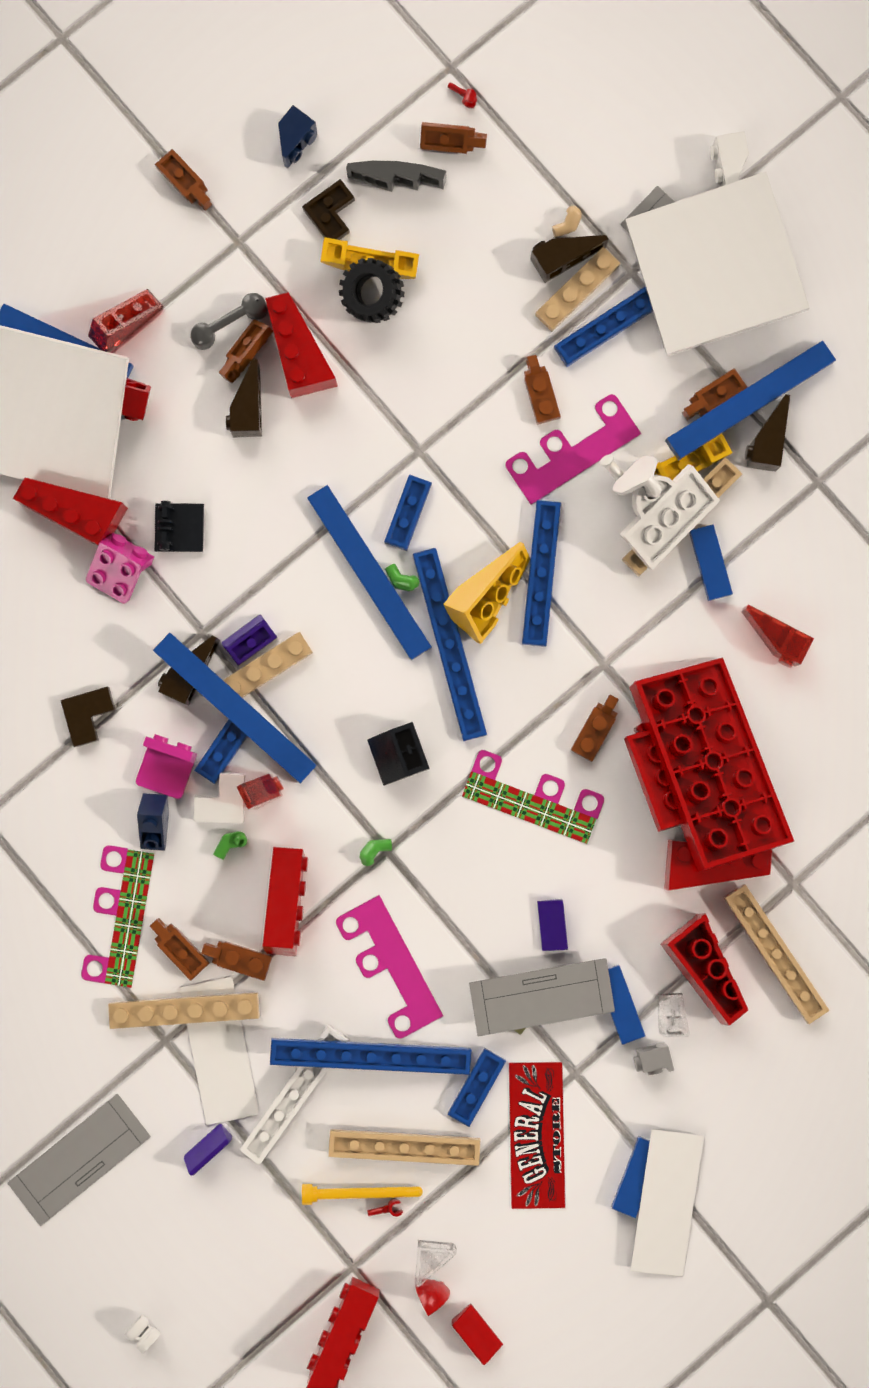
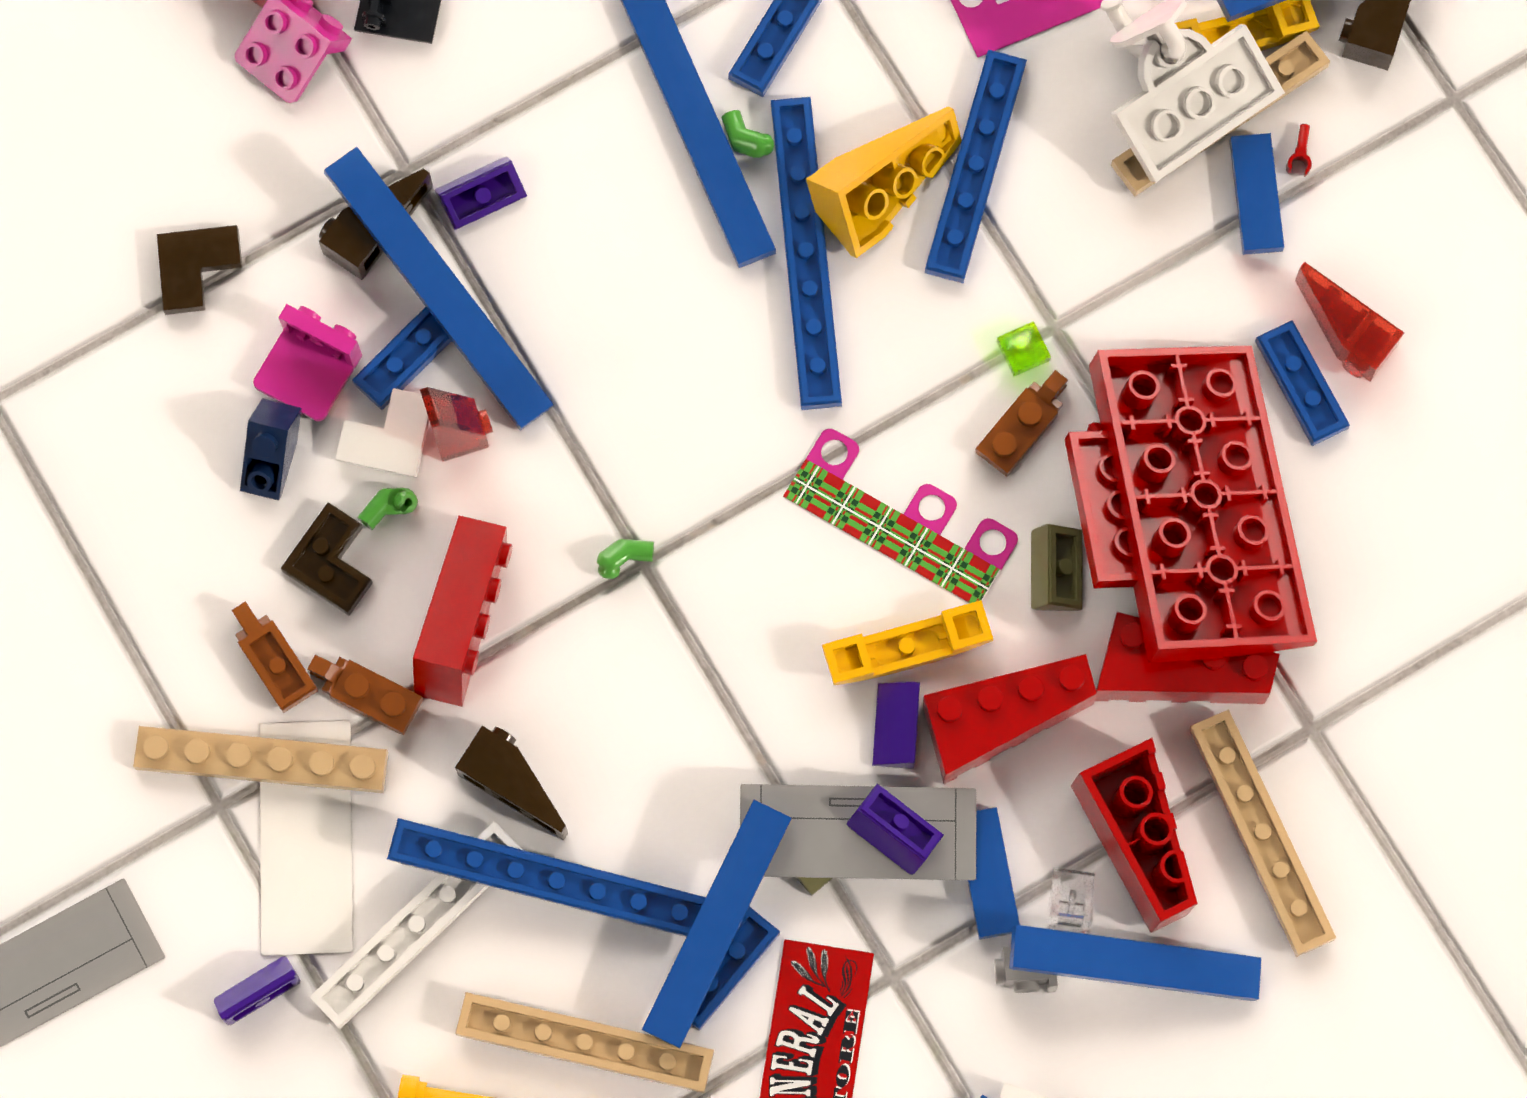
camera: 10 degrees right, 10 degrees down
(129, 913) = (201, 589): piece -> none
(195, 884) = (318, 561): none -> dark brown tile
(269, 665) = (509, 235): tan plate -> none
(329, 996) = (502, 772): none -> dark brown slope
(395, 956) = (626, 733): dark pink piece -> none
(398, 753) = (691, 405): black slope -> none
(469, 1068) = (716, 924): none -> blue tile
(551, 876) = (908, 646): none -> yellow slope
(564, 992) = (894, 829): none -> dark purple slope
(588, 682) = (1023, 349): none -> clear neon green tile
(611, 911) = (1001, 712): none -> red wedge
(629, 813) = (1056, 568): none -> olive slope
(716, 1048) = (1135, 963): none -> blue tile
(732, 532) = (1301, 150): none -> red hand
(756, 675) = (1302, 383): none -> blue tile

